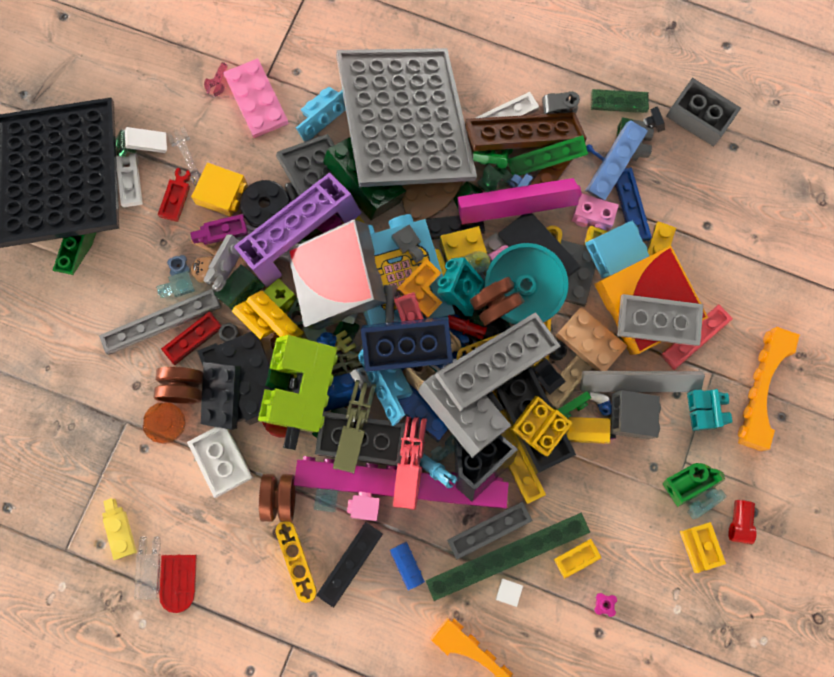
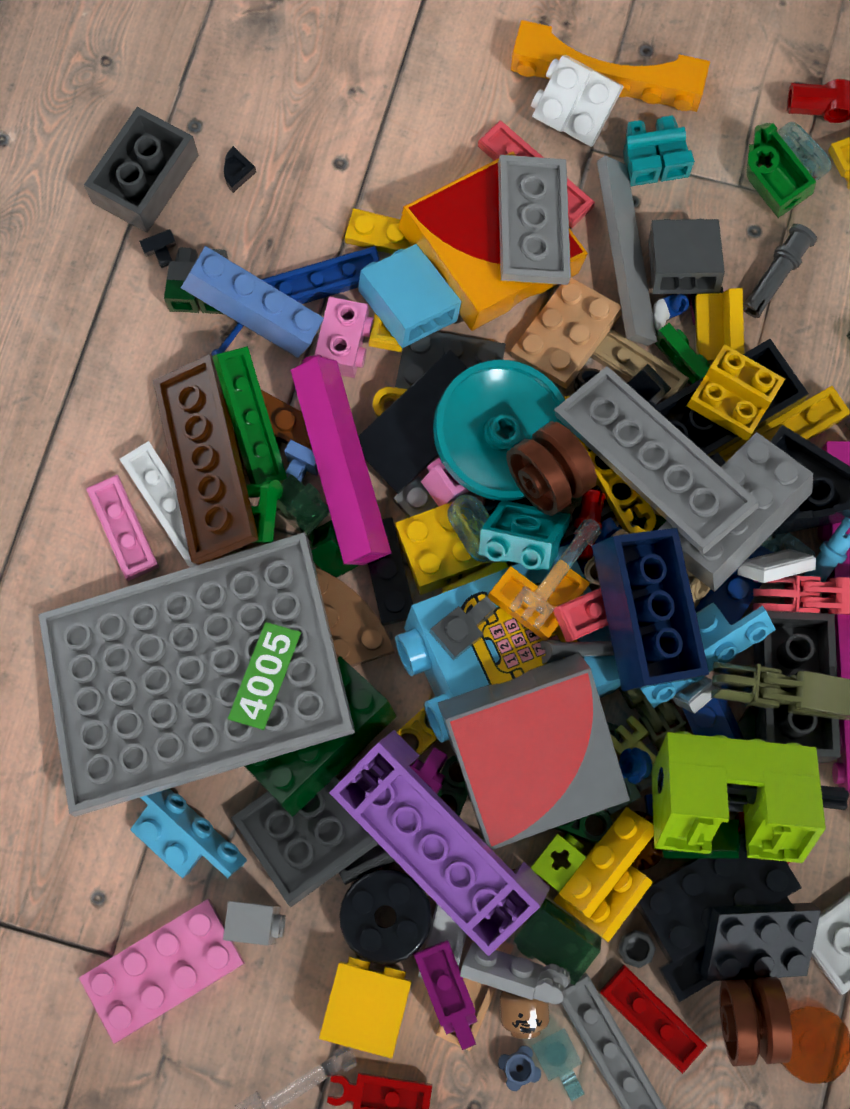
camera: 90 degrees left, 0 degrees up
(209, 83) = (129, 1055): clear pink bar -> none
(270, 136) = (253, 923): none -> light grey brick
(396, 145) = (264, 676): none -> bright green sticker
(419, 282) = (585, 534): none -> clear hinge
(430, 432) = (777, 565): none -> white tile
(492, 93) = (122, 528): none -> bright pink tile
(559, 102) = (140, 409): dark grey piece -> none
(619, 100) = (124, 308): clear green plate -> none
(632, 481) = (785, 259): none -> dark grey pin
(704, 167) = (237, 169): none -> black tile
(744, 362) = (576, 99): none -> white plate

